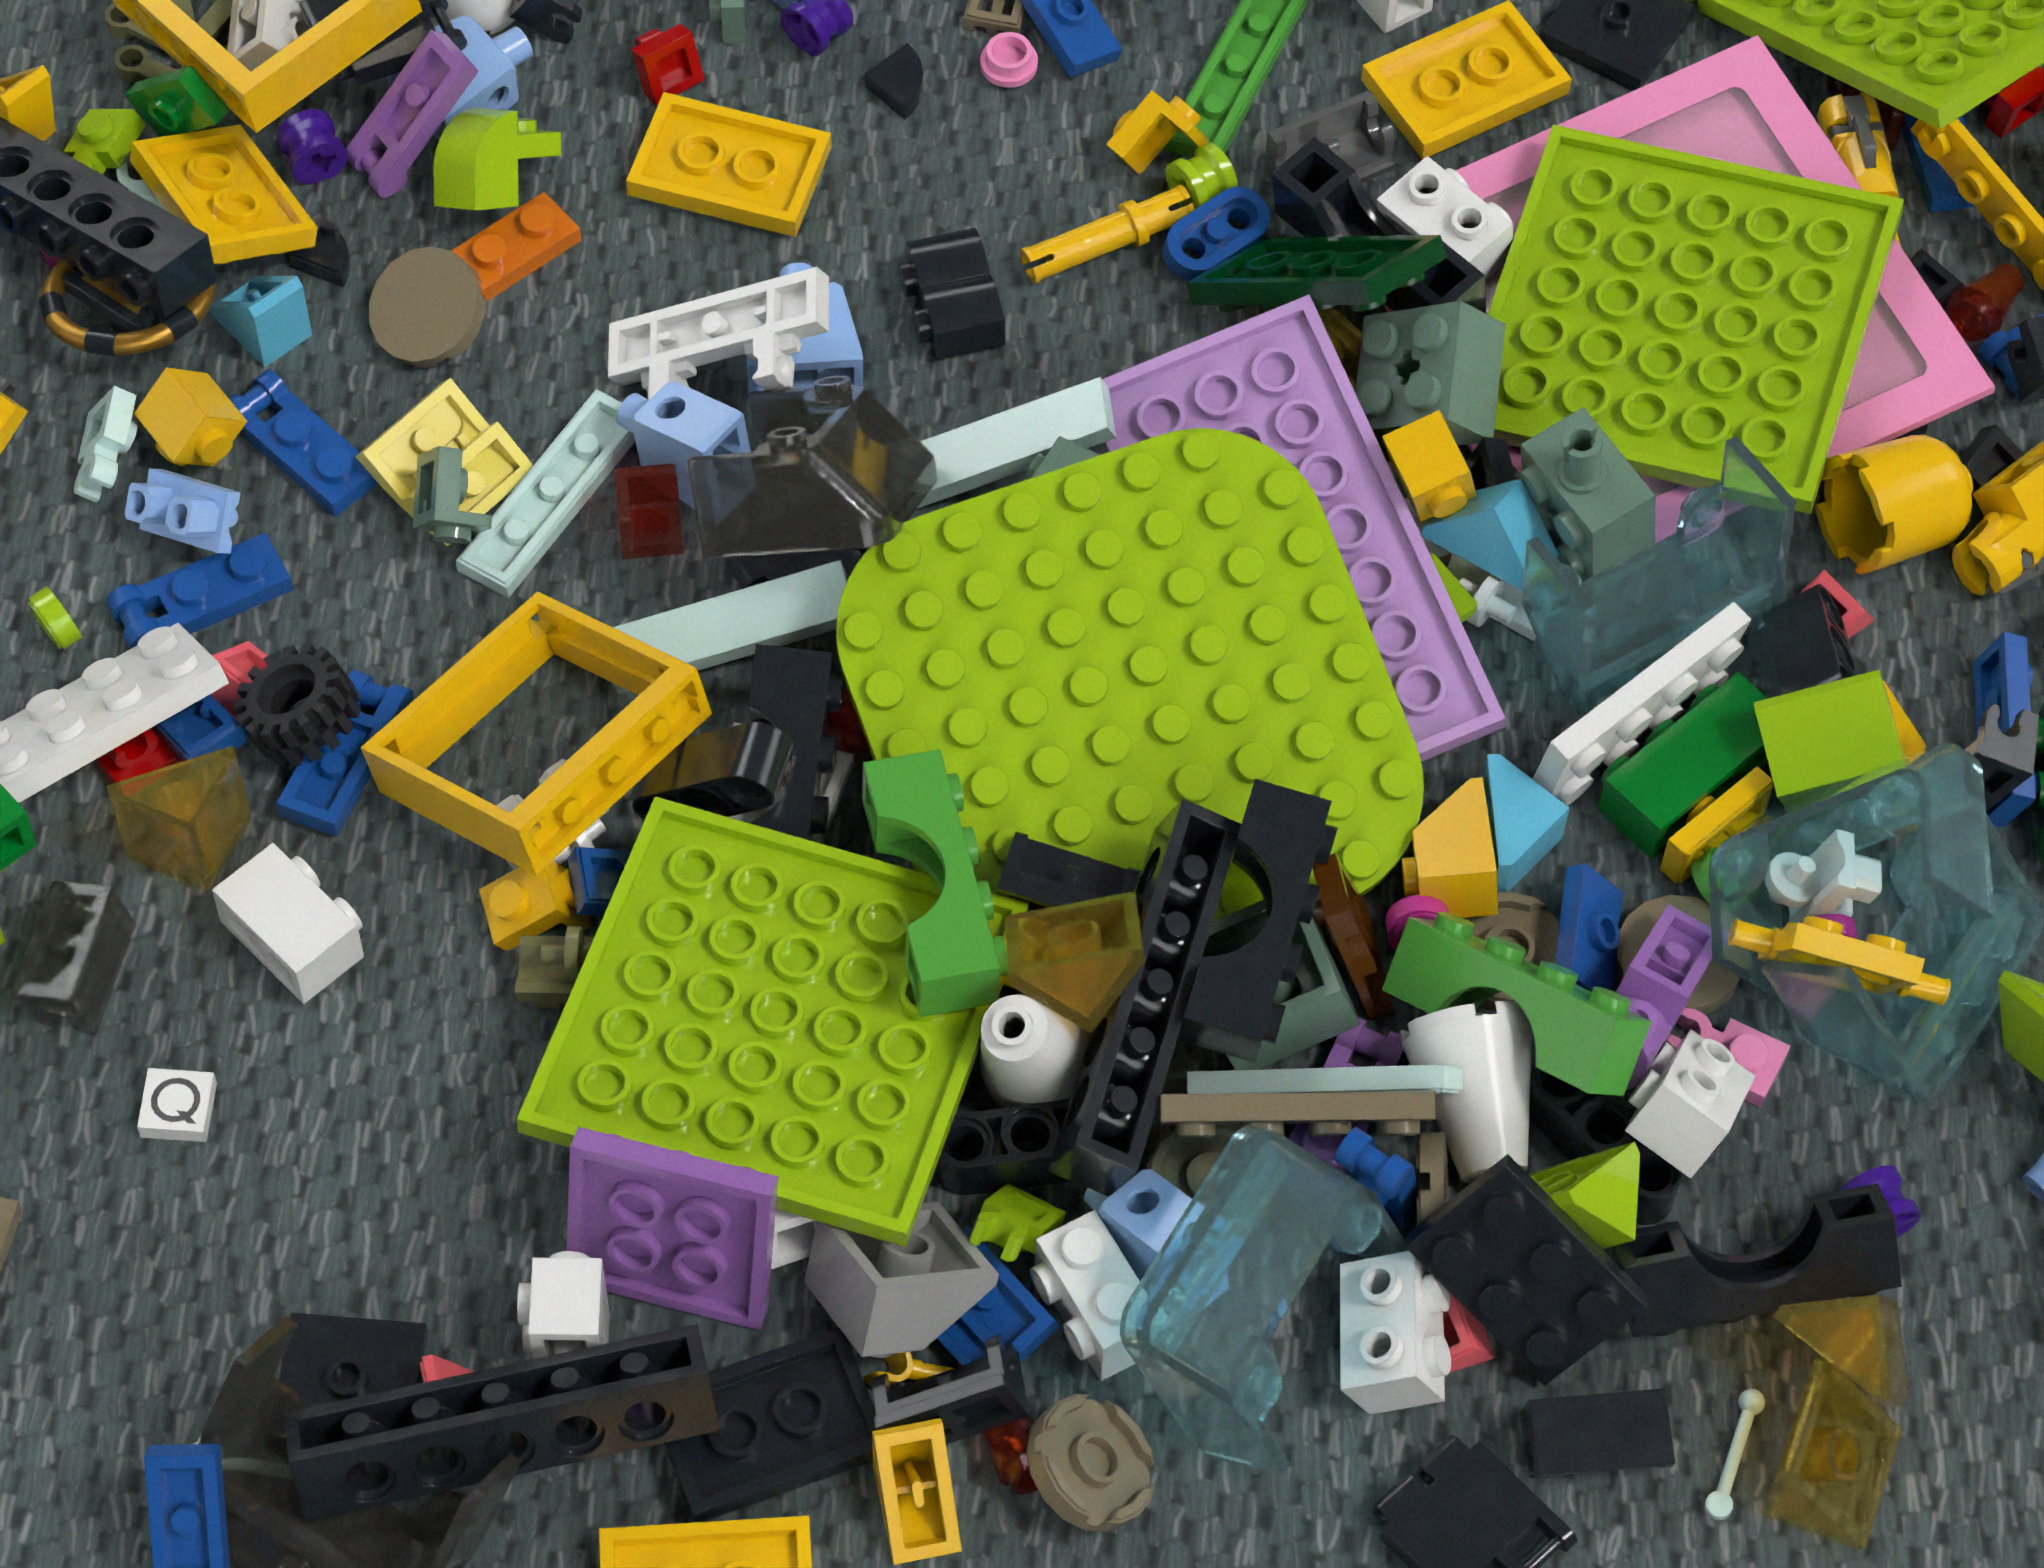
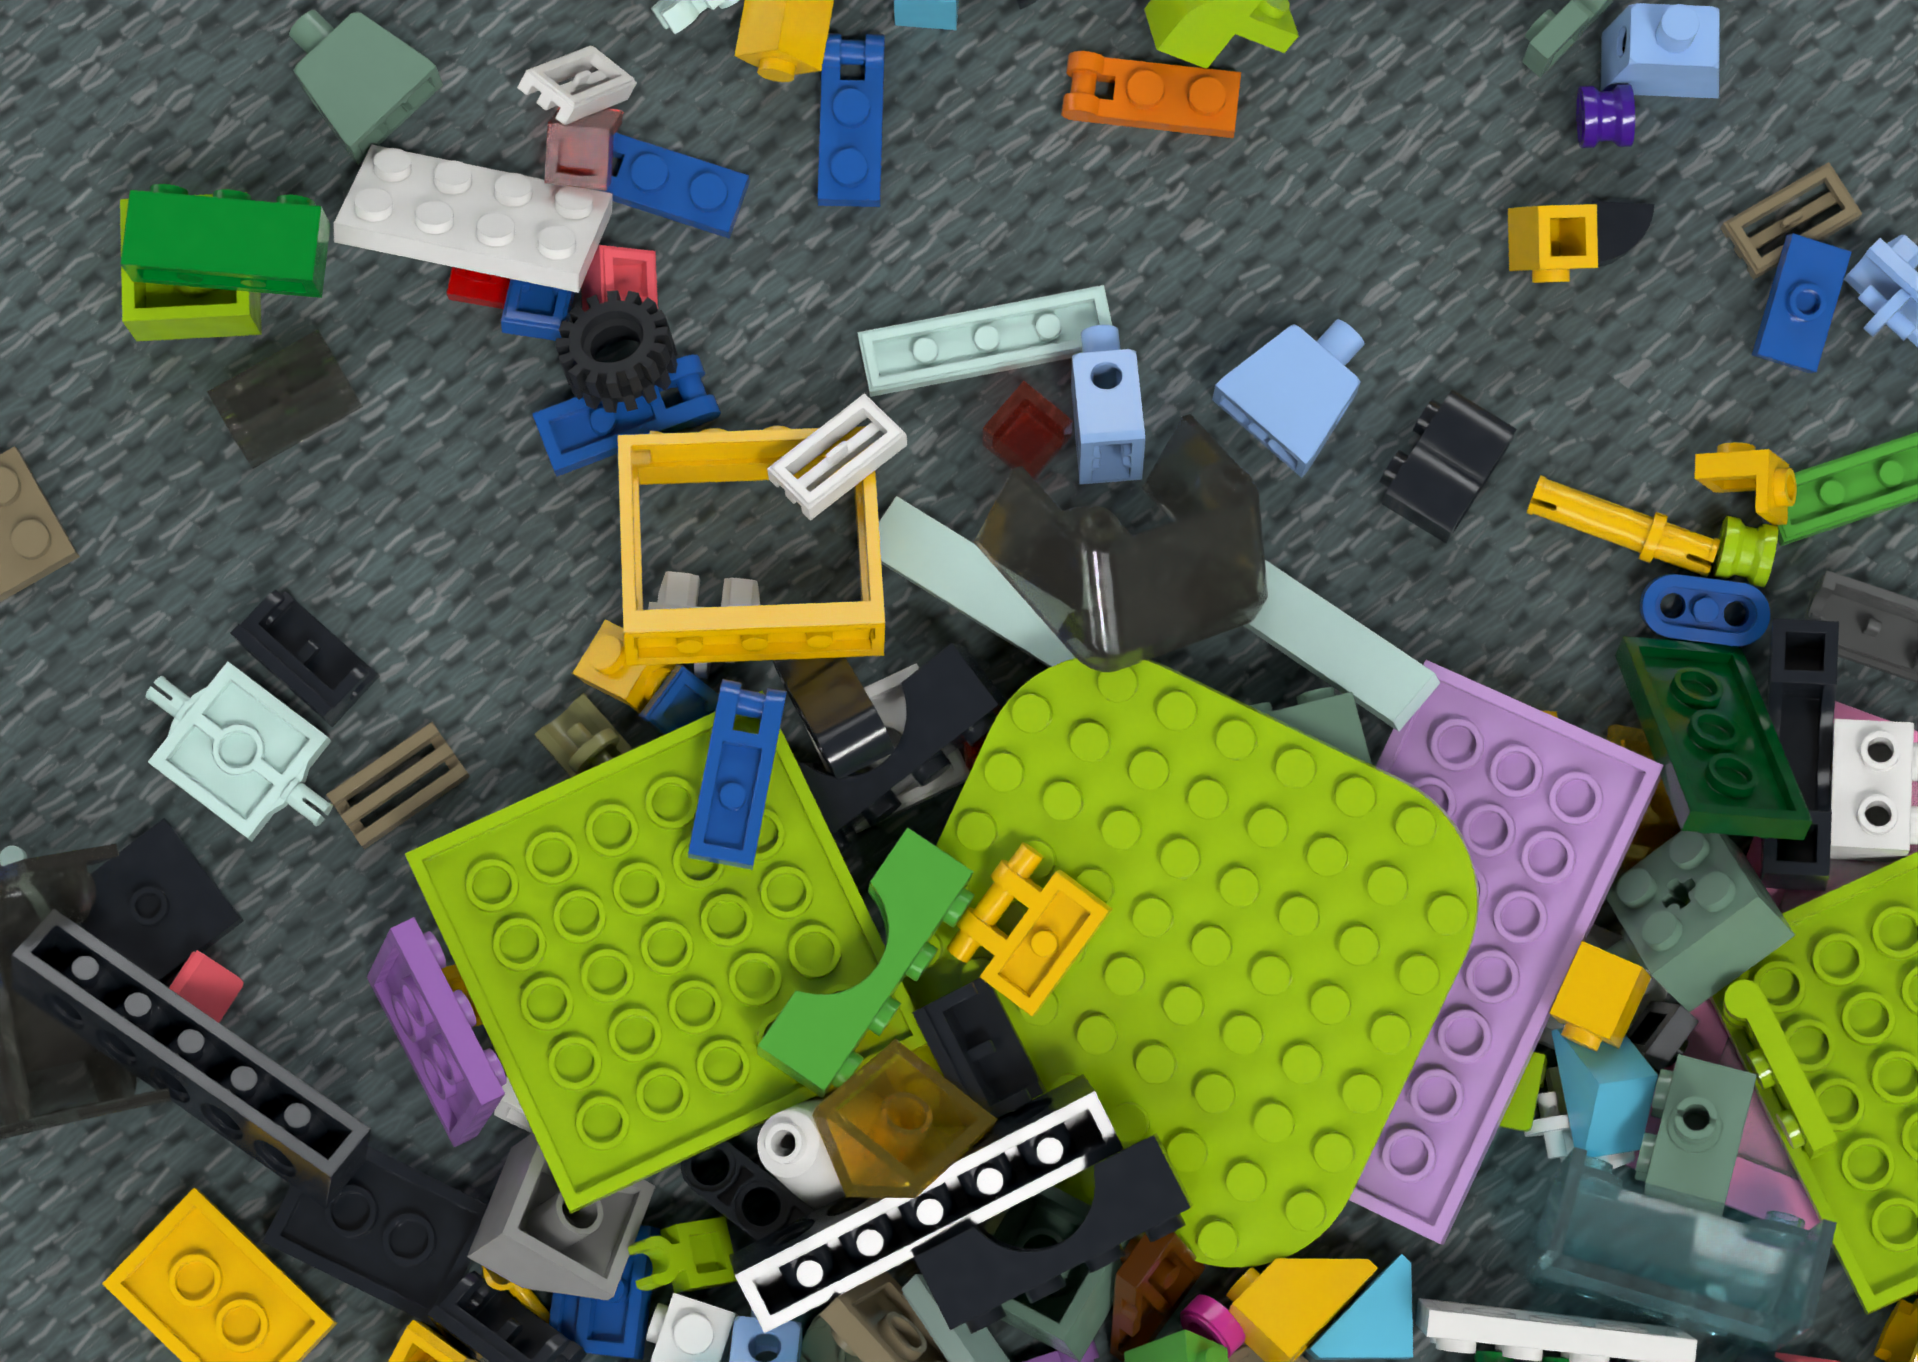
camera: 50 degrees right, 20 degrees up
(53, 618) = (528, 115): lime tile -> none
(76, 566) = (587, 91): none -> white tile
(125, 605) = (582, 150): none -> clear red panel
(177, 1105) = (246, 578): white tile -> none
(184, 509) = (703, 110): light blue hips -> none
(184, 816) = (452, 373): clear yellow slope -> none
(279, 1116) = (305, 656): none -> black hinge
(290, 921) = (446, 520): white brick -> none
(299, 1216) = (239, 751): none -> light aqua plate
(427, 306) = (1047, 95): dark tan tile -> none
(439, 492) = (887, 271): sand green bracket -> none
(446, 420) = (932, 242): light yellow slope -> none
(455, 1085) = (383, 765): none -> dark tan tile
(536, 654) = (853, 472): none -> white tile
(563, 1305) = (313, 1022): white brick -> none
(667, 62) = (1448, 45): red tile -> none
(703, 852) = (736, 777): none -> blue plate
(729, 164) = (1403, 182): yellow plate -> none
(751, 320) = (1251, 362): white hinge -> none
(868, 105) = (1552, 240): none -> yellow brick
(1009, 60) = (1717, 296): bright pink plate -> none
(1034, 760) = (1044, 941): none -> yellow plate
(1625, 417) = (1777, 1066): none -> lime plate

